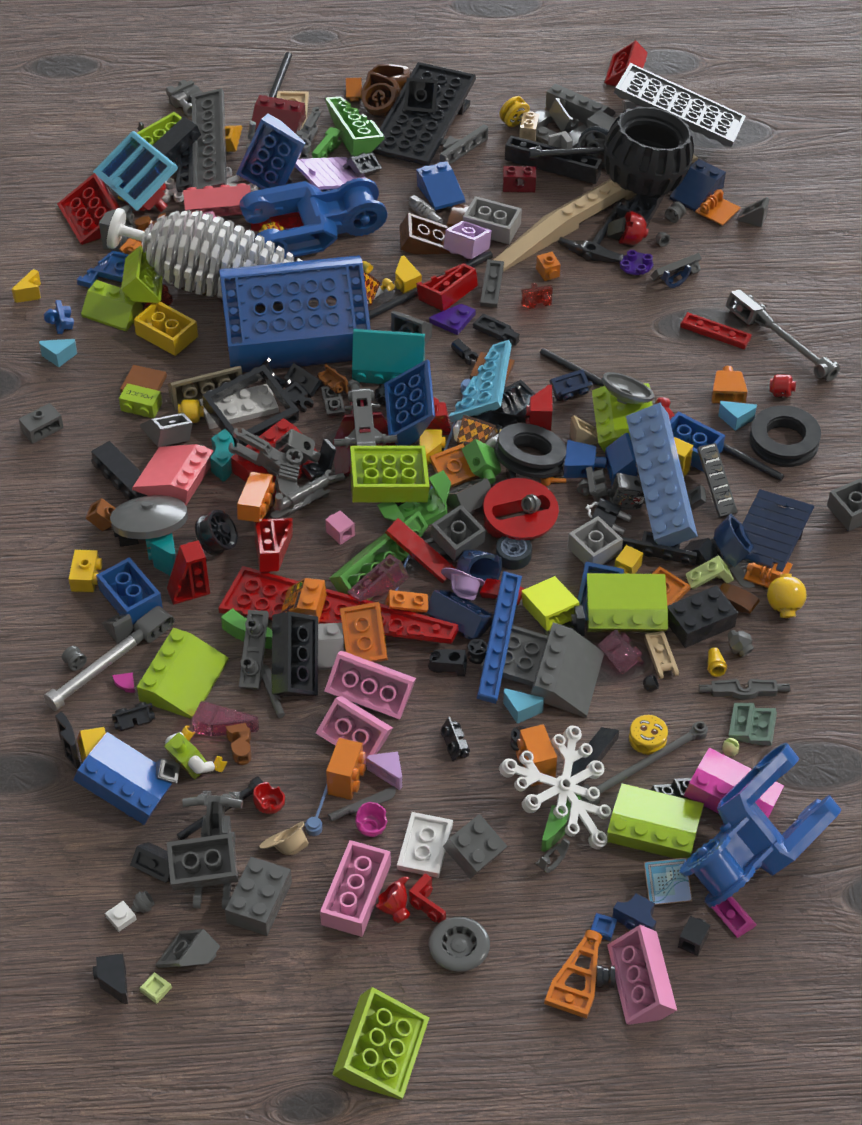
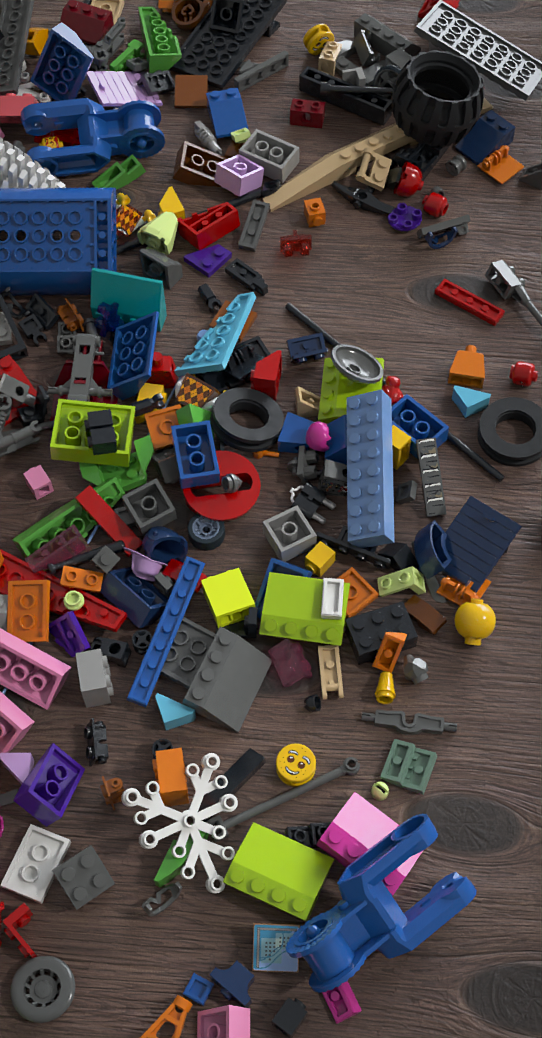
camera: 10 degrees right, 10 degrees up
(339, 150) = (137, 64): none -> dark grey plate
(354, 246) = (120, 174): none -> bright green slope
(375, 378) = (110, 319): none -> clear blue hips
(398, 170) = (191, 91): none -> dark orange tile
(400, 470) = (102, 433): none -> black piece
(403, 297) = (159, 233): none -> yellowish green cone
(406, 619) = (73, 600): none -> yellowish green plate
(406, 651) = (69, 634): none -> dark purple wing
(416, 579) = (83, 558): none -> black piece
(423, 777) = (50, 786): none -> dark purple slope
(427, 580) = (105, 559): none -> dark grey brick
(435, 445) = (147, 405): none -> black bar
(441, 683) = (94, 678): none -> light grey brick
(460, 204) = (240, 135): none -> yellowish green plate
(484, 773) = (112, 791): none -> dark orange hinge
(485, 600) = (164, 584): none -> dark grey plate
(493, 480) = (195, 454): none -> blue brick
(500, 248) = (271, 187): none -> black tile
(602, 223) = (378, 172): none -> tan plate
(603, 456) = (317, 436): none -> dark pink hair
(652, 587) = (332, 598): none -> white tile
(663, 248) = (435, 204): none -> red head
(714, 627) = (389, 651): none -> orange slope

